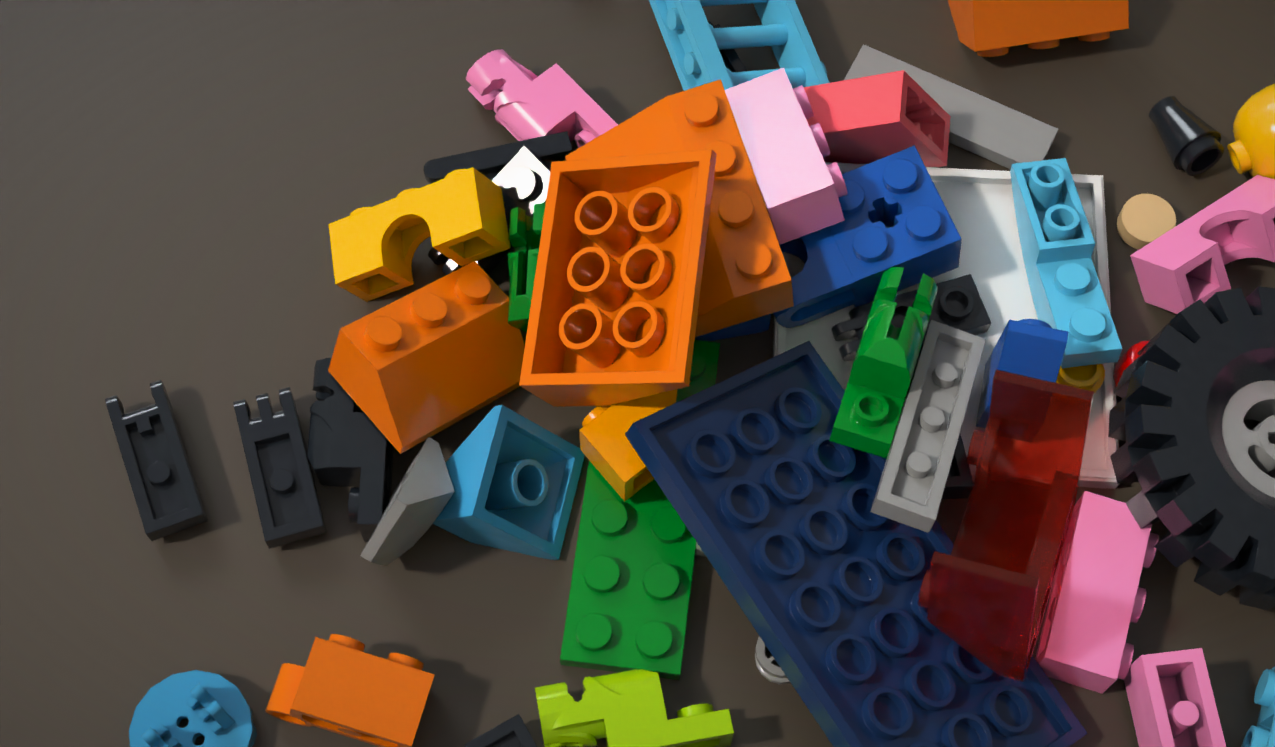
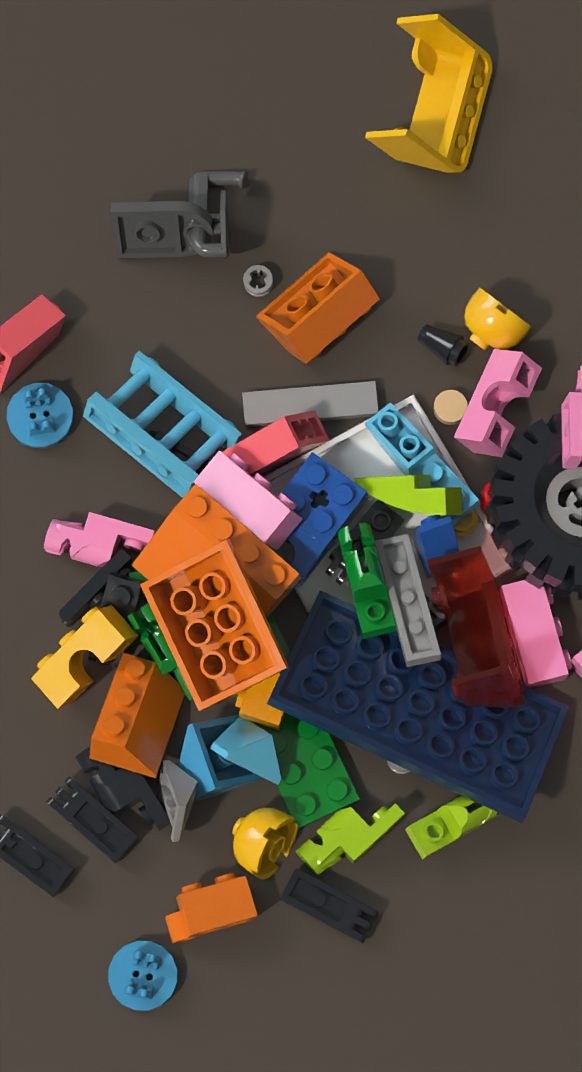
camera: 30 degrees left, 10 degrees up
(497, 641) = (262, 838): none -> yellow cylinder
(563, 496) = (249, 748): none -> medium azure slope
(1033, 283) = (414, 494): none -> lime slope

